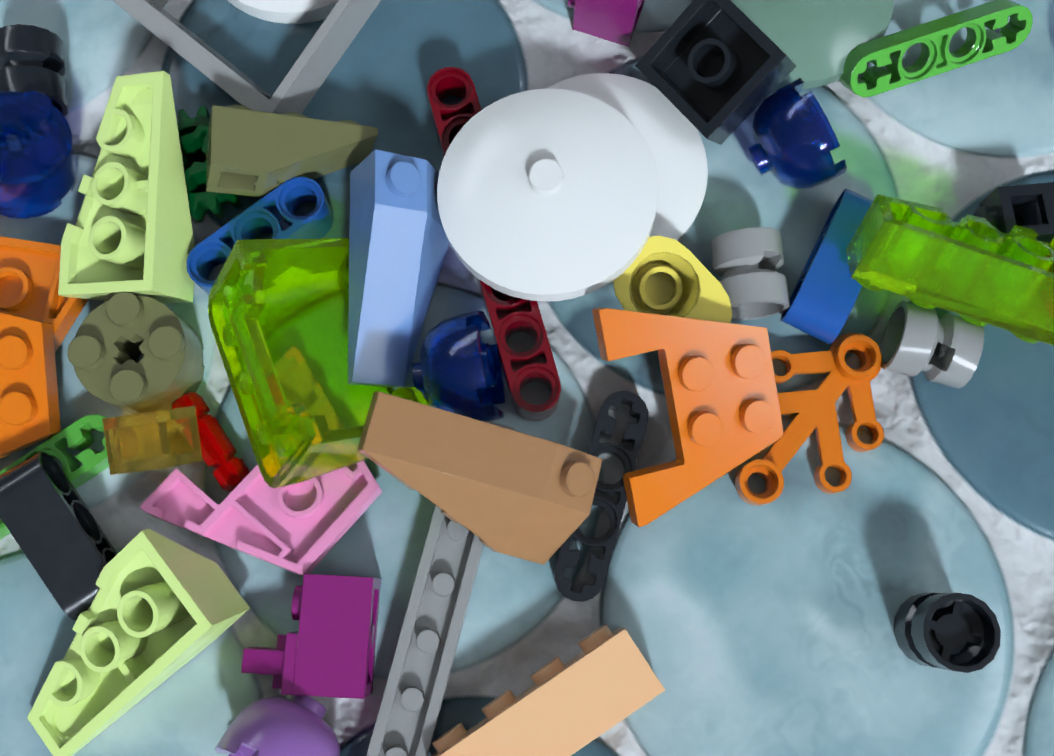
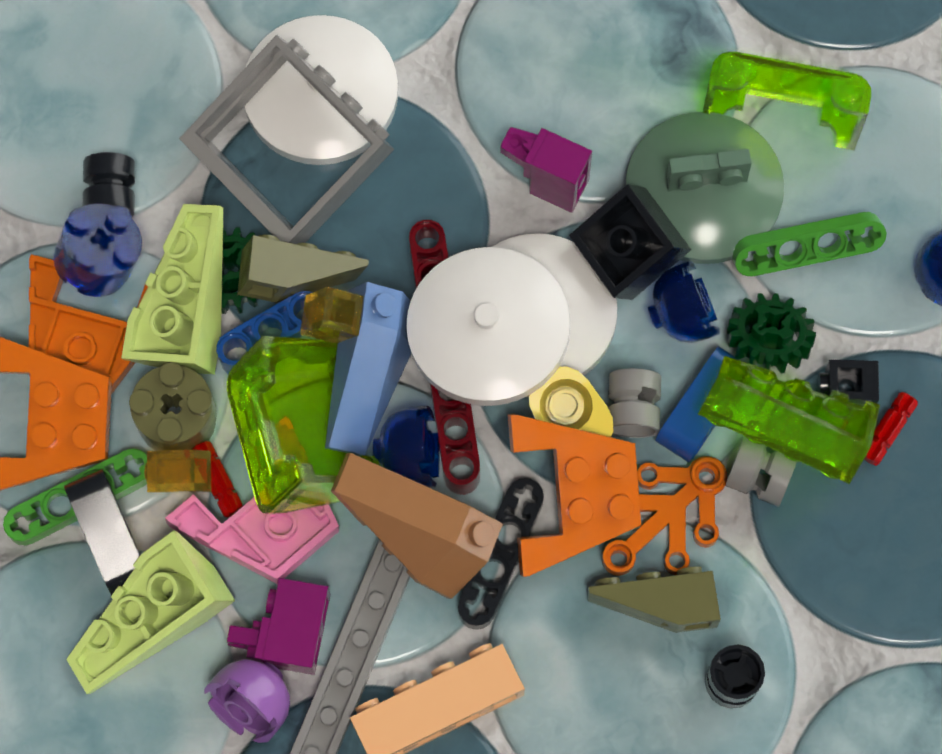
camera: 10 degrees right, 5 degrees down
(334, 201) = (332, 315): none -> clear yellow brick
(846, 537) = (670, 602): none -> olive slope
(911, 161) = (771, 332): none -> dark green gear

